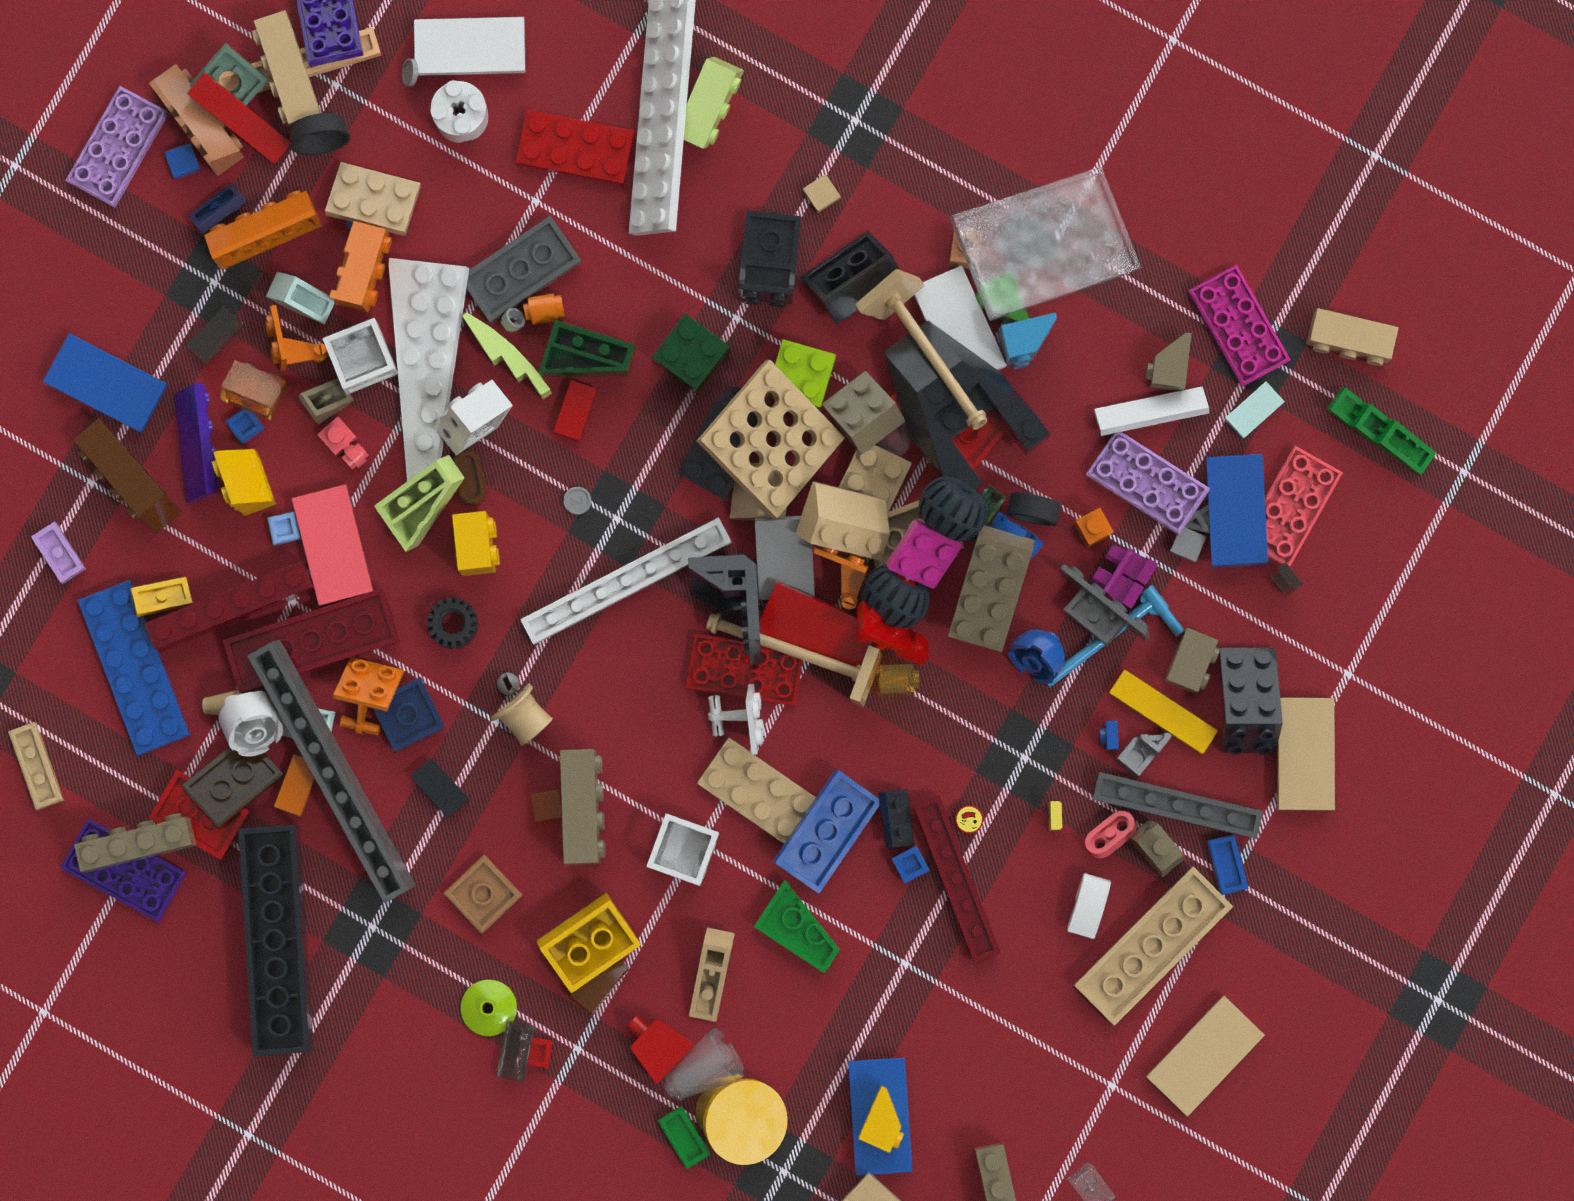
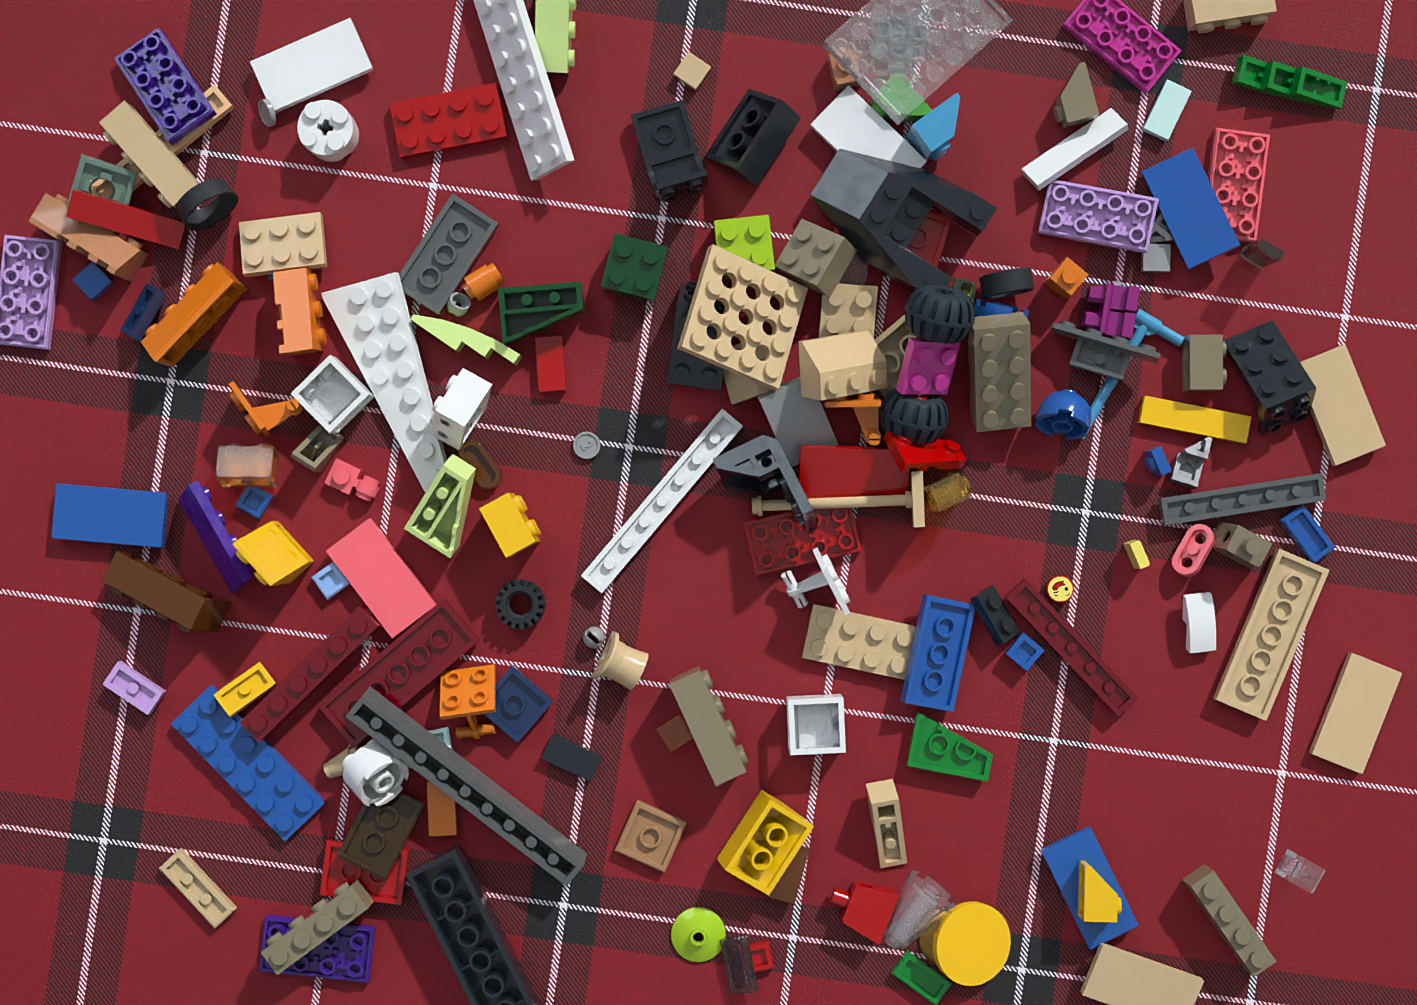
camera: 20 degrees left, 5 degrees up
(215, 335) = (192, 430): clear smoke tile -> none
(300, 297) = (254, 363): light aqua slope -> none
(890, 298) = (797, 140): tan tile -> none

